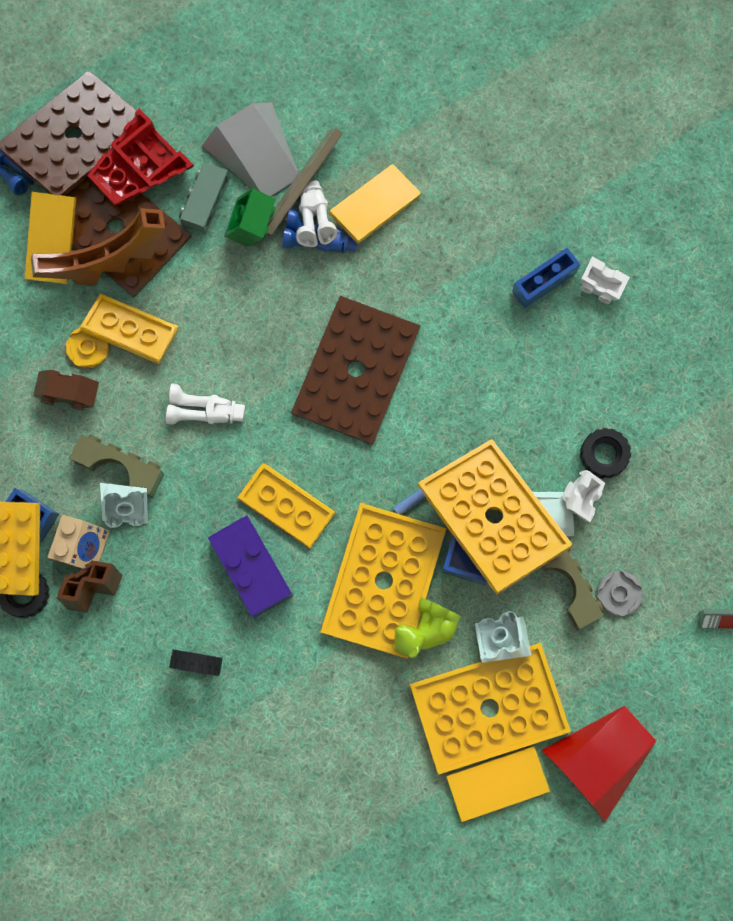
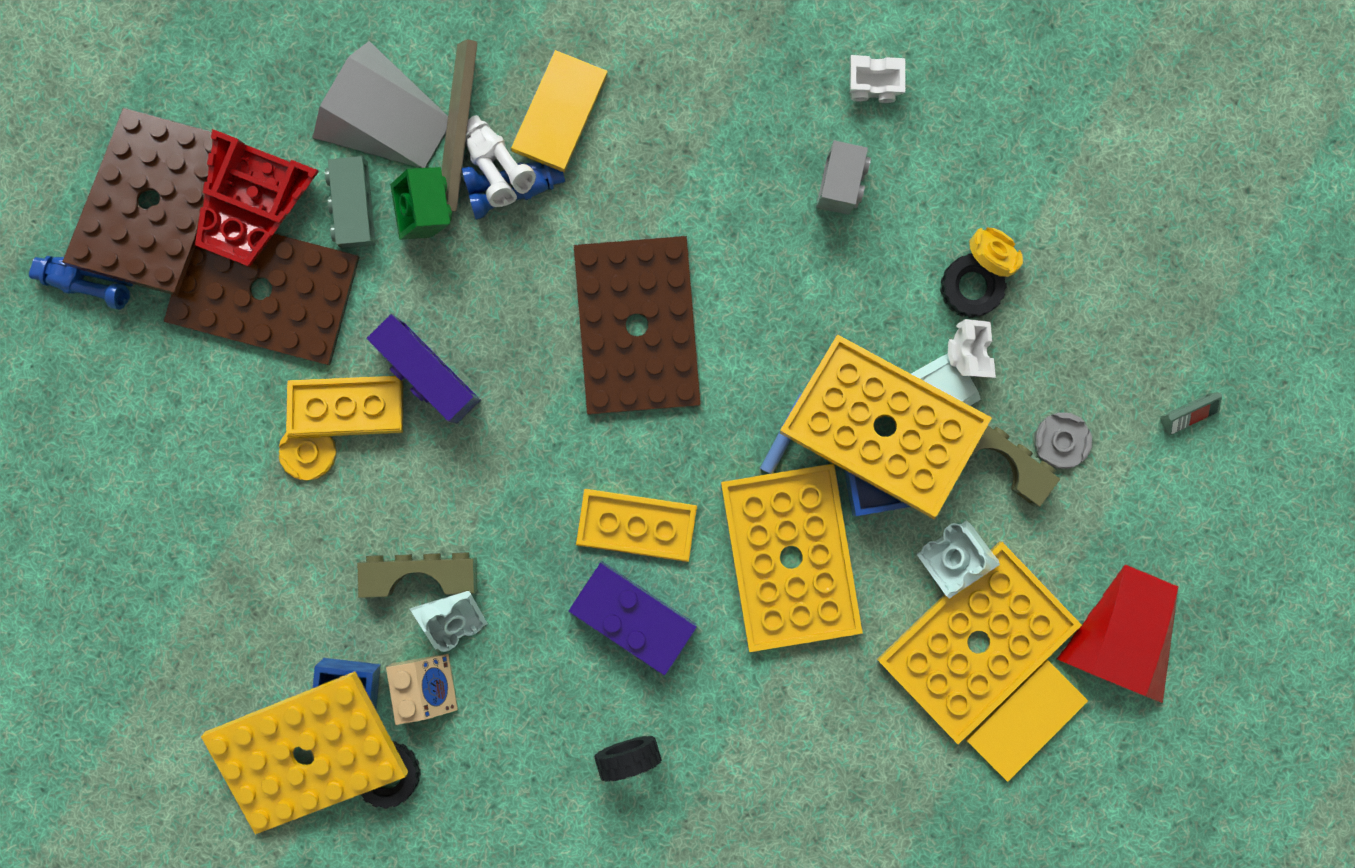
camera: 30 degrees left, 10 degrees up
(49, 228) = (191, 343): yellow tile -> none
(73, 389) = (317, 514): reddish brown brick -> none
(79, 588) = (450, 740): reddish brown brick -> none
(112, 255) = (254, 358): dark orange arch -> none
(196, 332) = (423, 369): none -> dark purple brick
(217, 409) = (500, 455): white piece -> none
(434, 629) = (877, 584): lime animal -> none
(545, 277) = (807, 106): blue brick -> none
(546, 334) = (842, 176): none -> light grey piece
(632, 436) = (995, 252): none -> yellow tile

